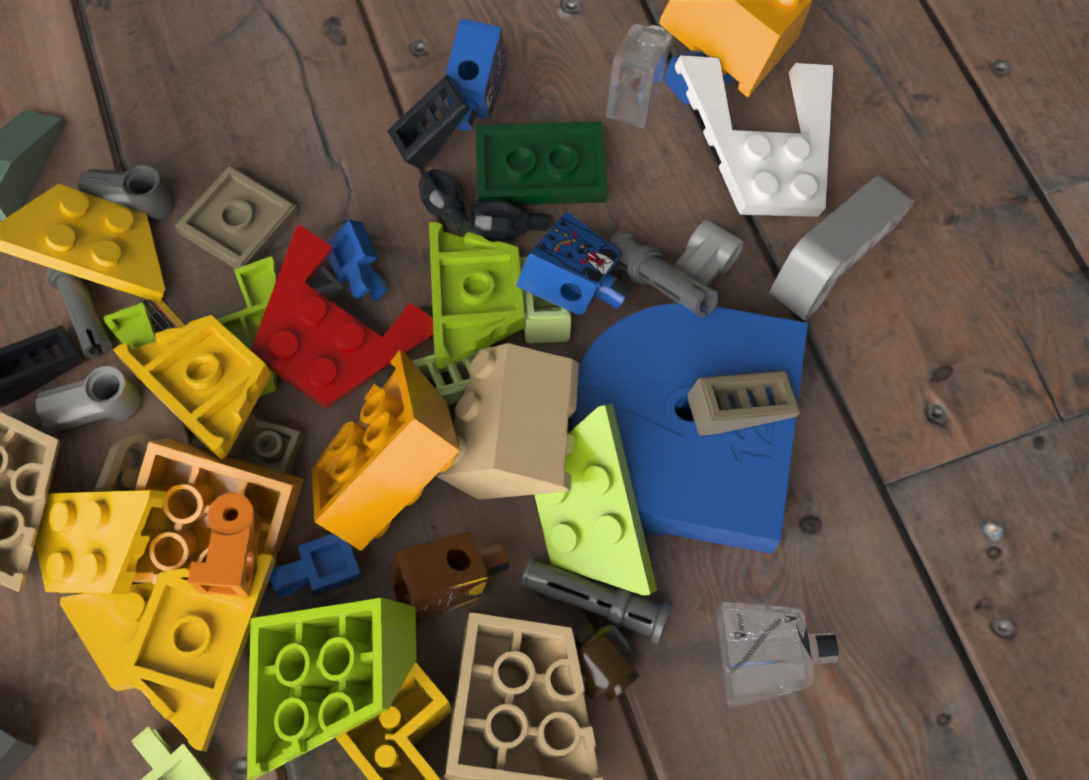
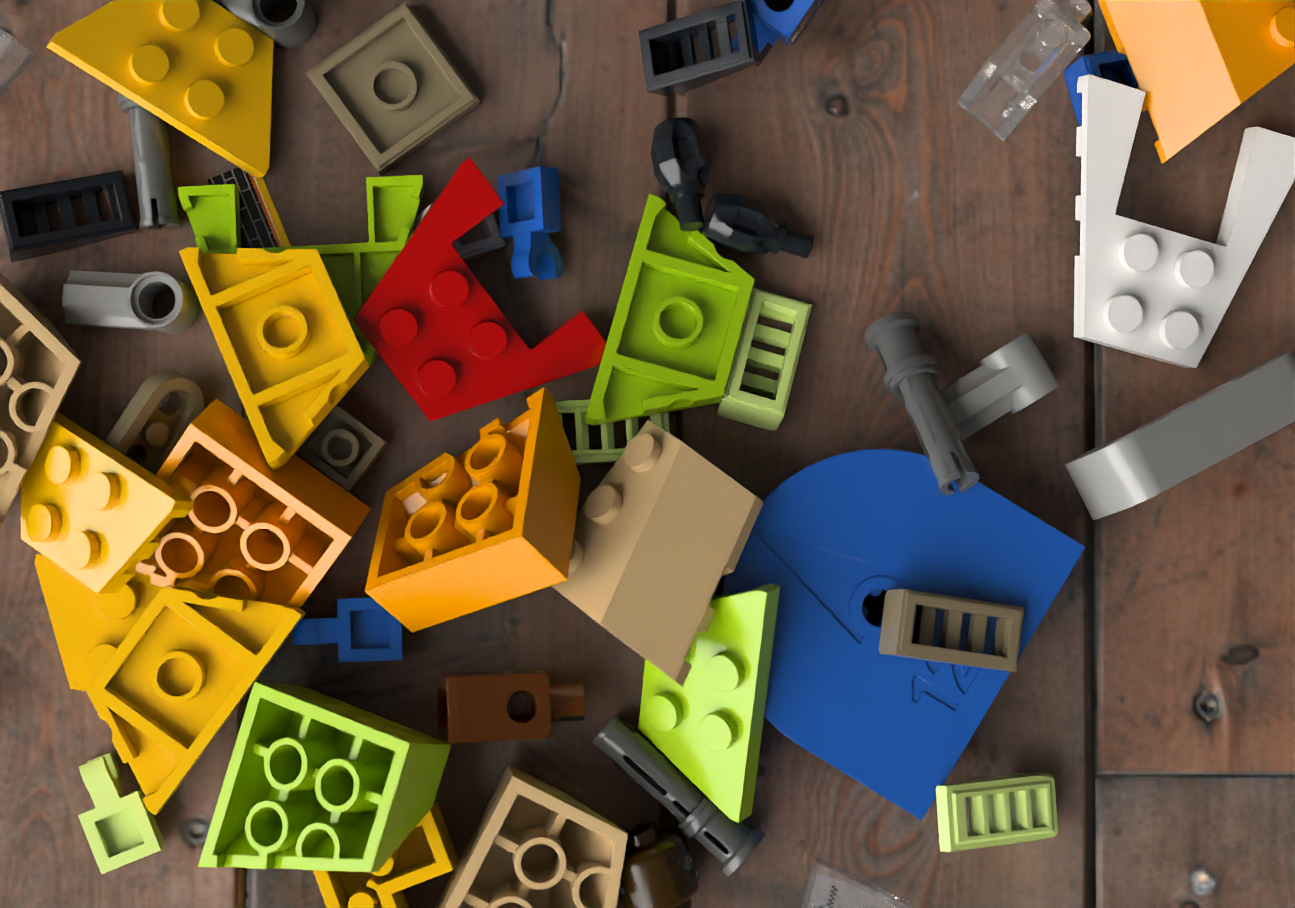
camera: 15 degrees right, 20 degrees up
(230, 549) = (265, 577): orange leg -> none
(541, 163) = (834, 155): dark green plate -> none
(573, 268) = (815, 348): blue torso -> none
(830, 521) = (1000, 811): none -> yellowish green slope

